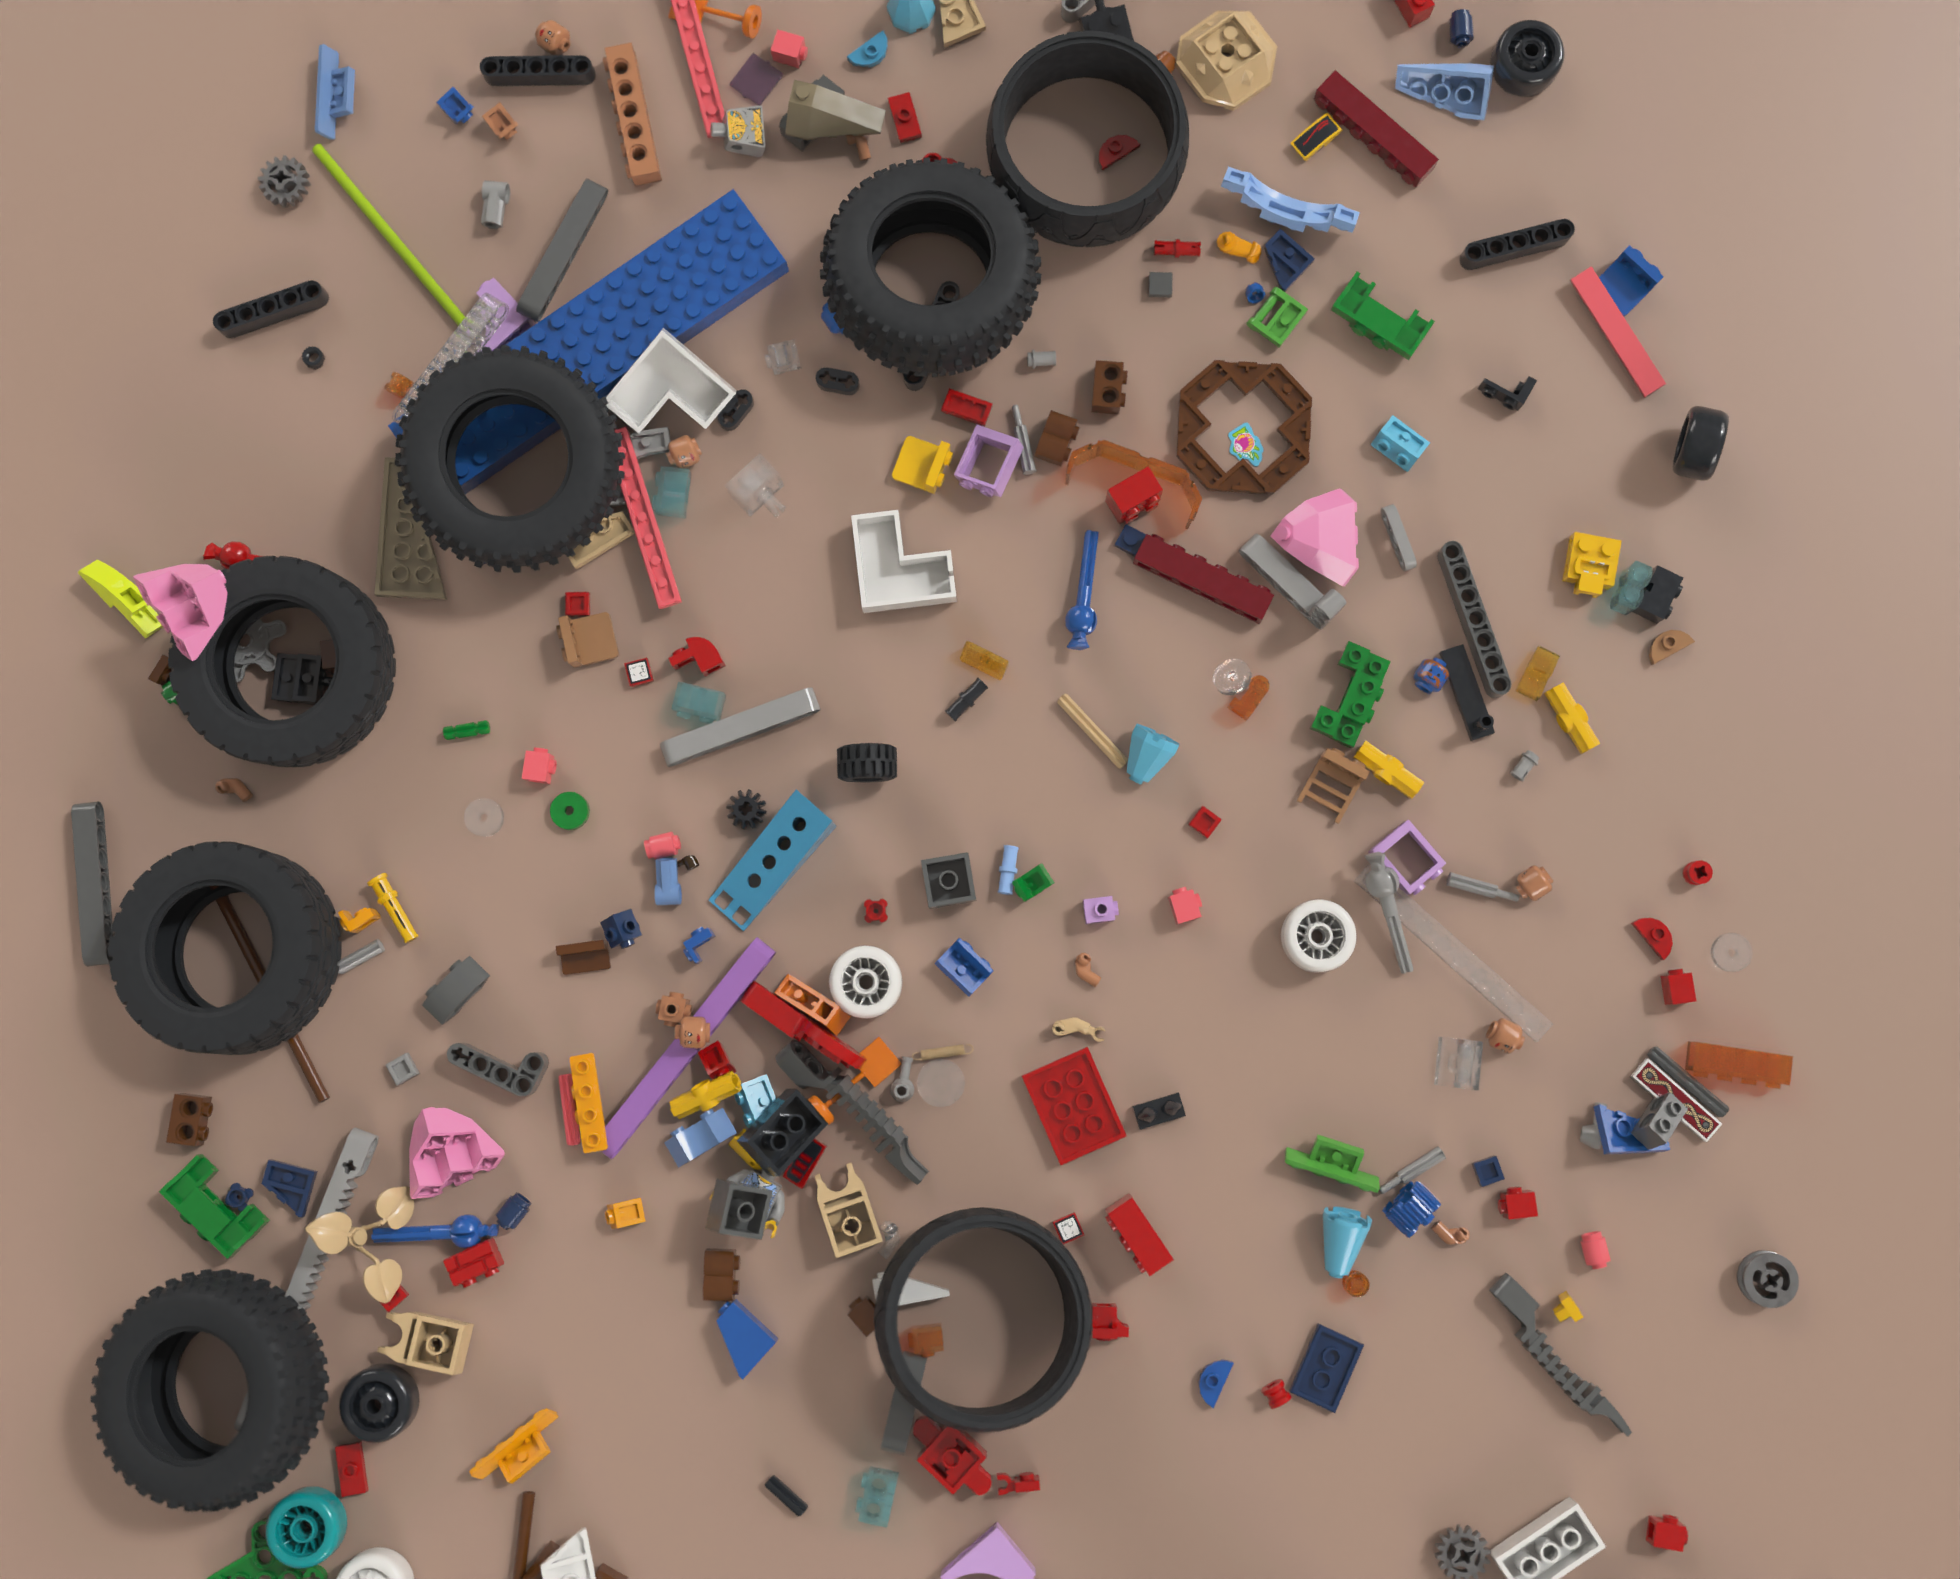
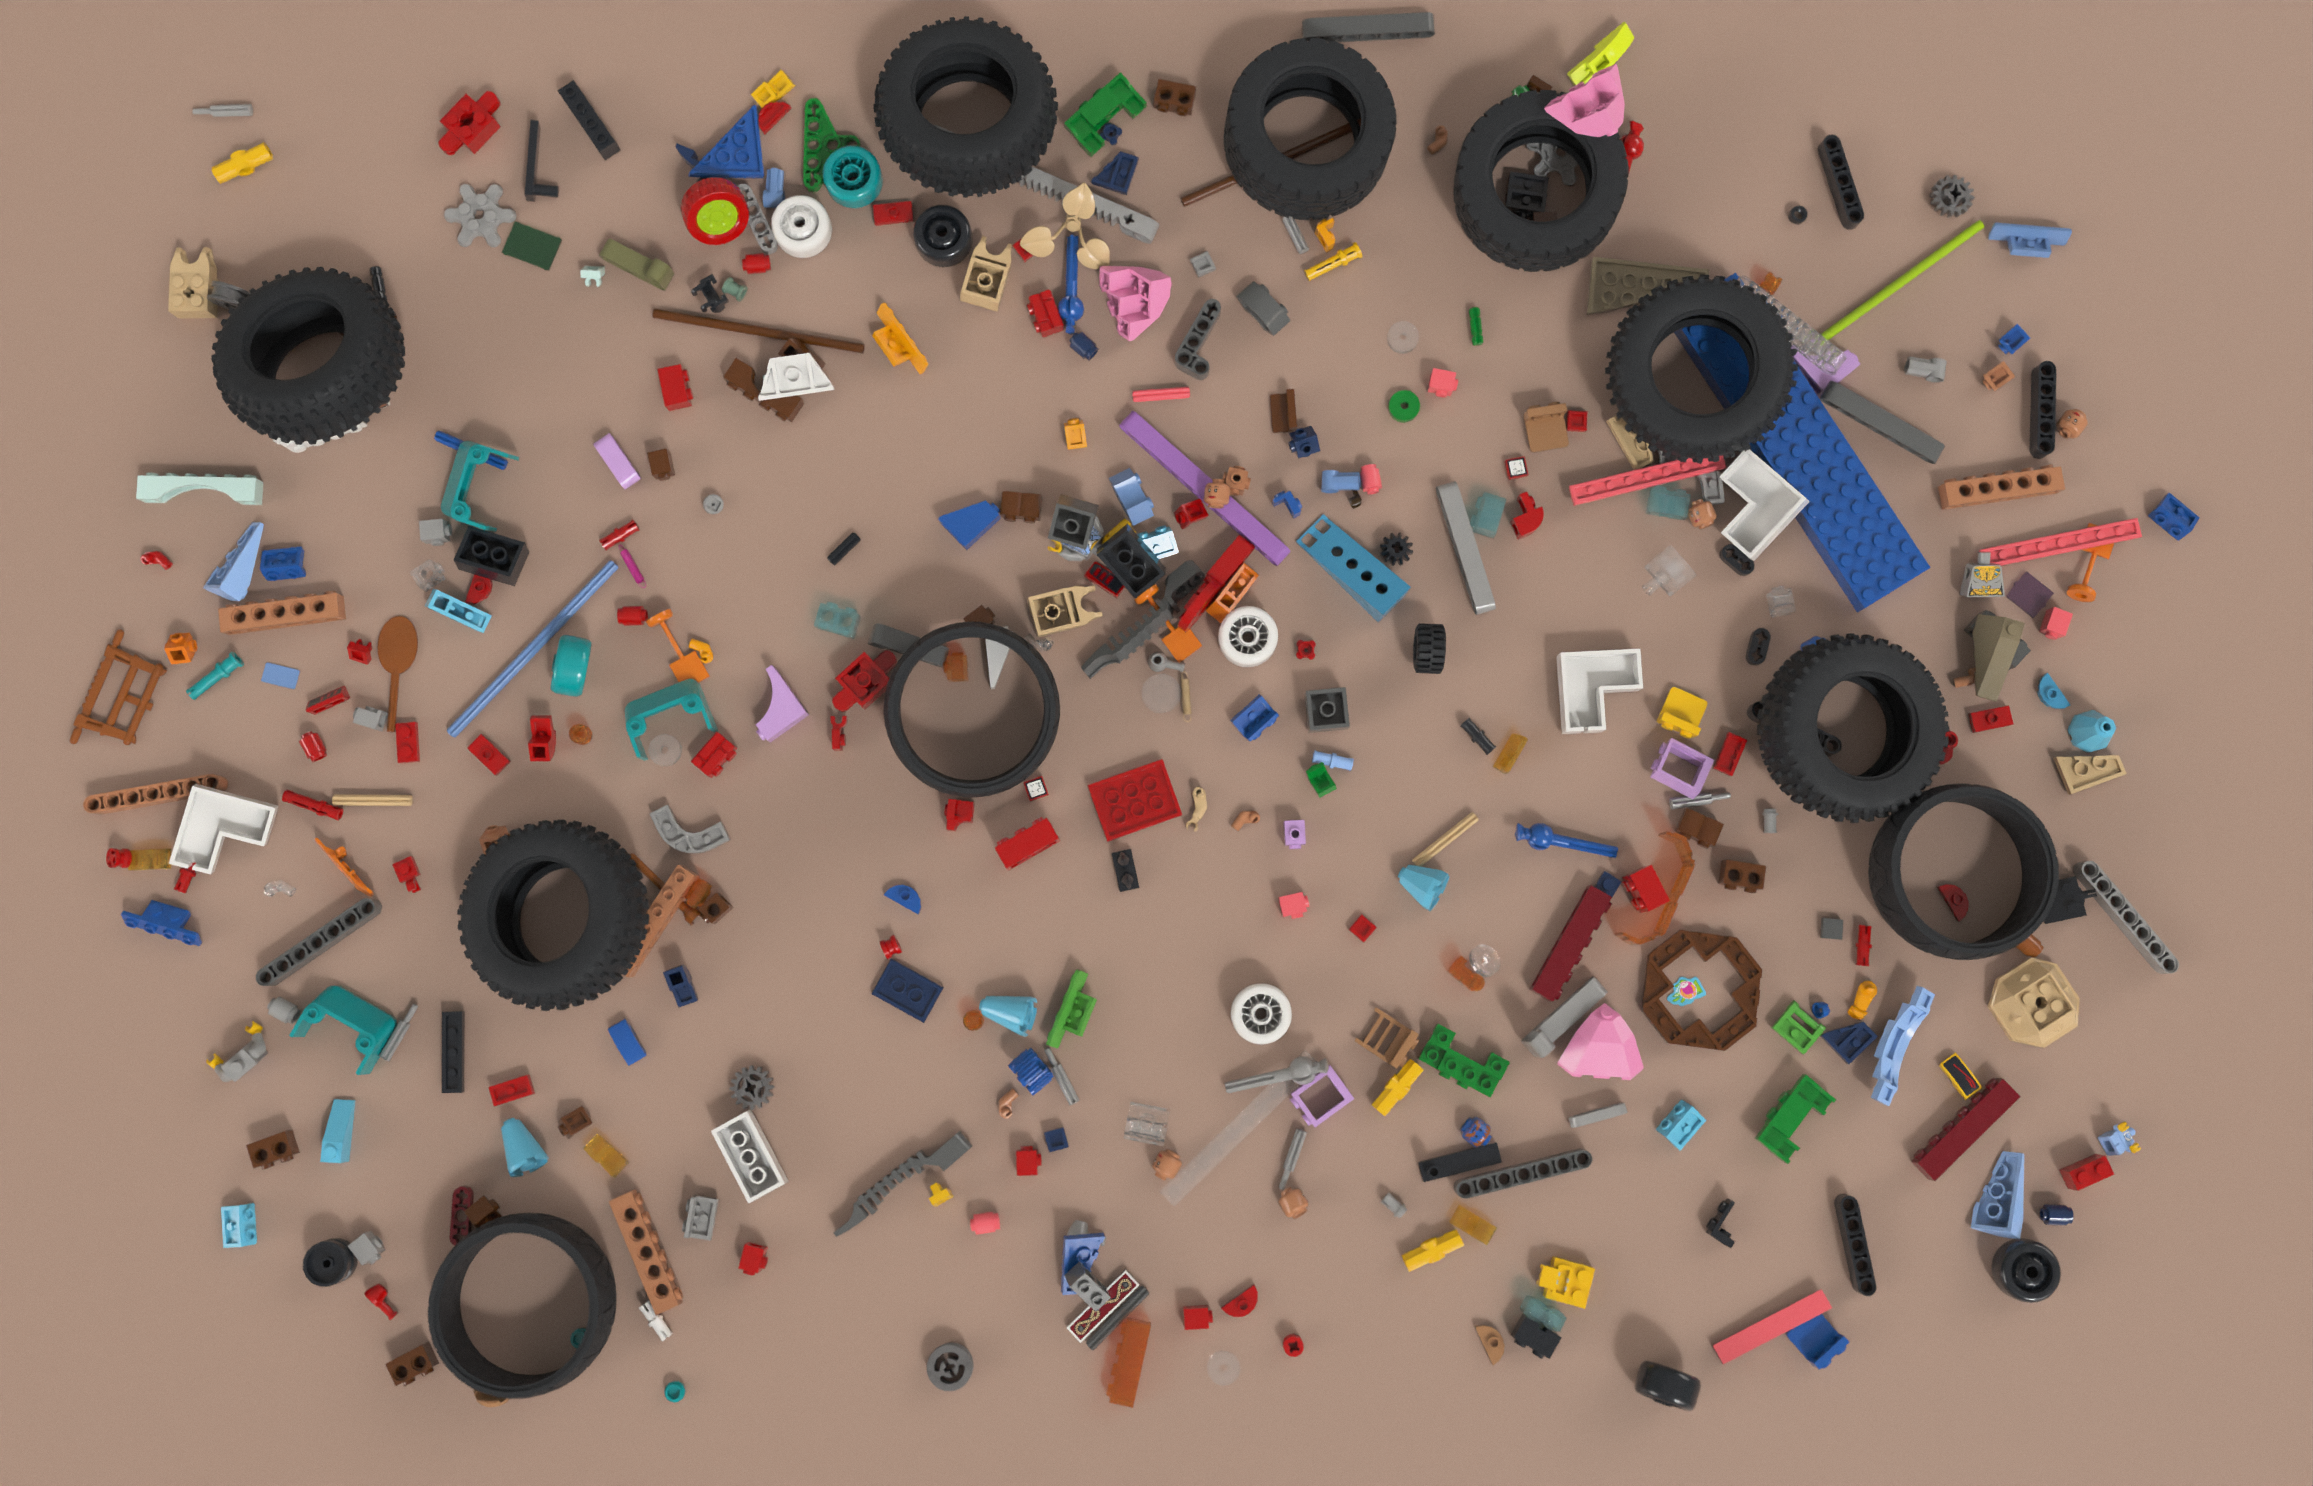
camera: 90 degrees right, 0 degrees up
(588, 1102) = (1165, 408): light orange bracket -> none
(705, 1095) = (1165, 502): yellow piece -> none

